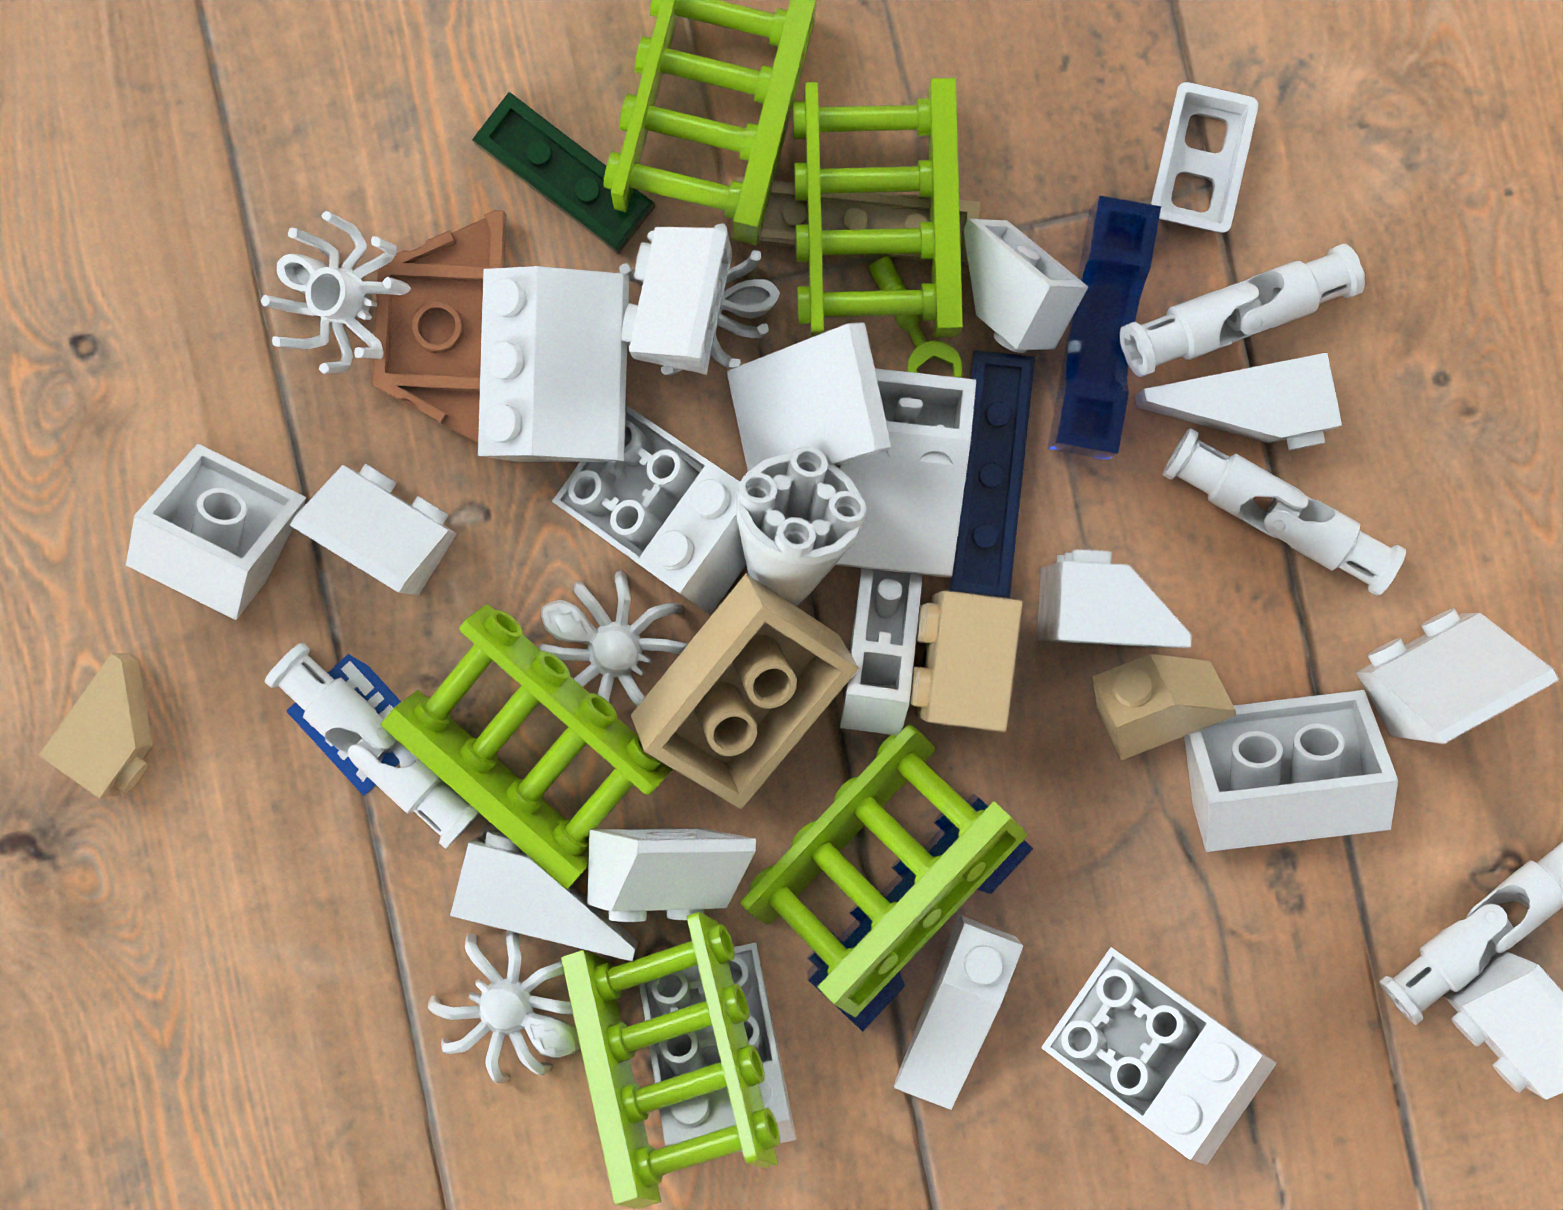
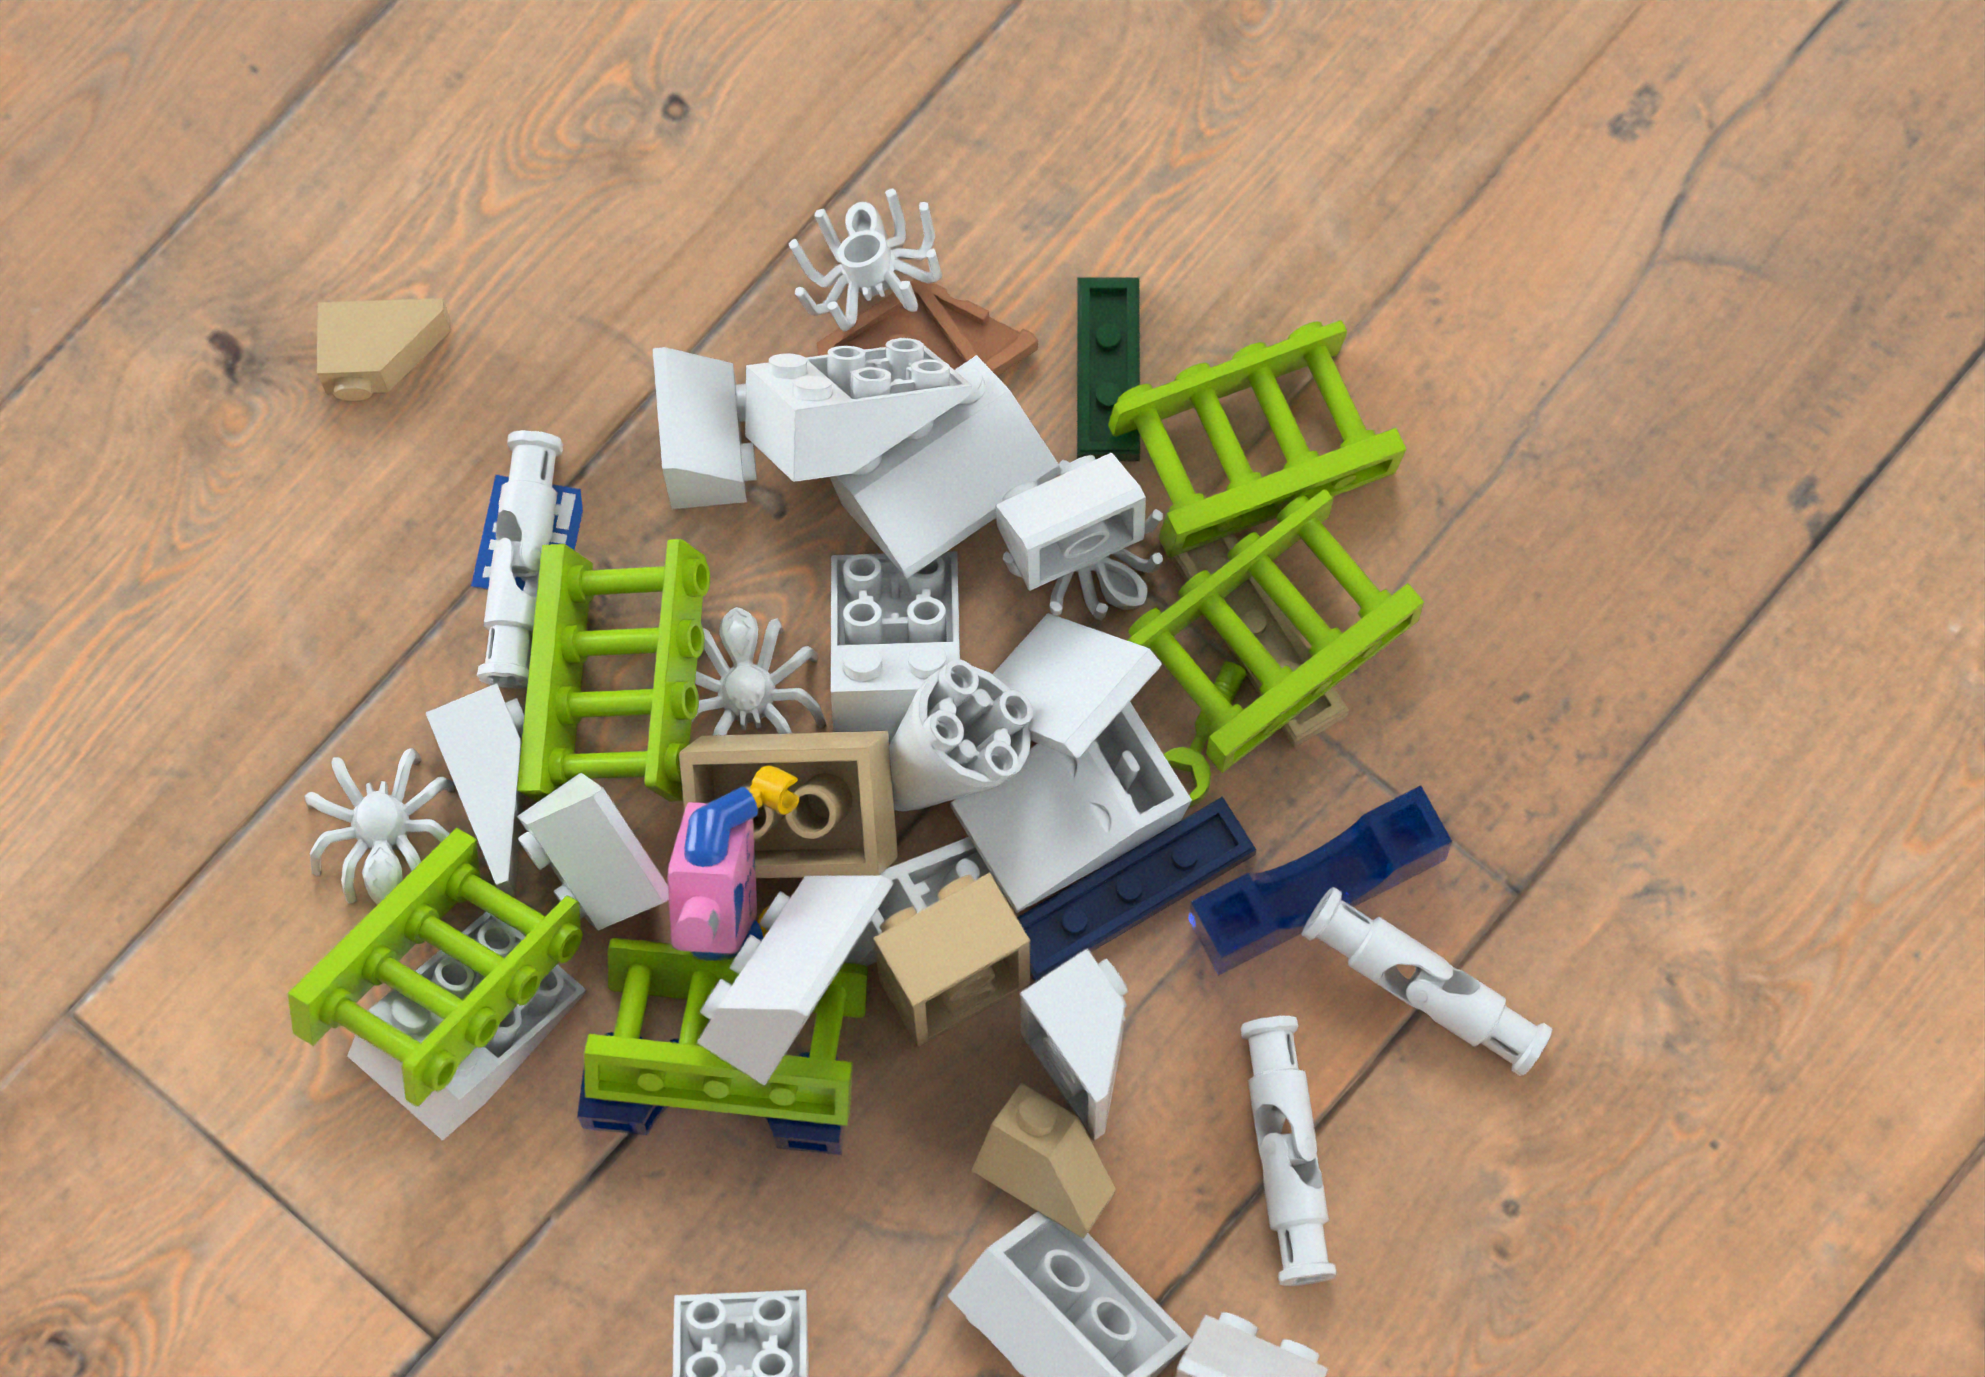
camera: 55 degrees right, 15 degrees down
(213, 531) = (600, 307): white slope -> none
(453, 403) = (845, 406): none -> white slope
(766, 796) = (715, 868): none -> torso
(893, 797) = (788, 970): none -> white slope
(958, 1011) = (652, 1195): white slope -> none
(1019, 286) = (1300, 787): white slope -> none
(1221, 168) = (1516, 844): white piece -> none
(1264, 402) = (1368, 1063): white slope -> none

